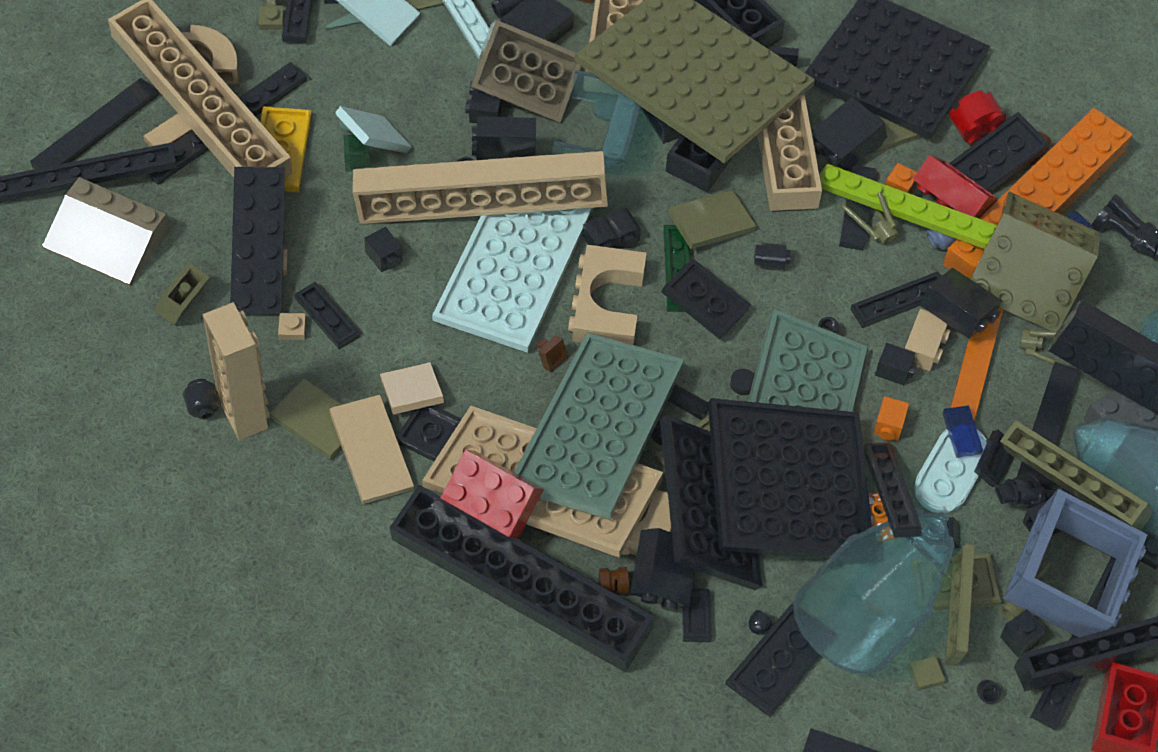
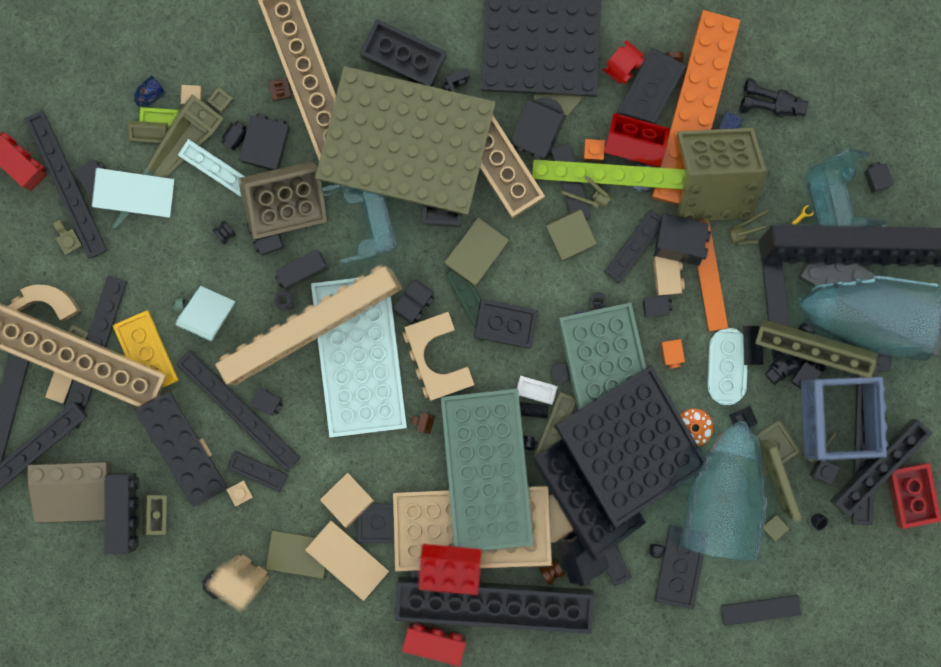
camera: 25 degrees left, 30 degrees up
(145, 271) = (121, 513): none -> black brick
(346, 249) = (238, 410): none -> black tile
(420, 581) = (434, 643): none -> red brick
(442, 78) = (224, 232): none -> black wheel
(702, 383) = (536, 390): none -> white tile
(772, 256) = (532, 261): black brick -> none
(831, 251) = (571, 234): none -> olive tile
(892, 490) = (702, 420): black tile -> none
(962, 431) = (724, 338): clear blue tile -> none

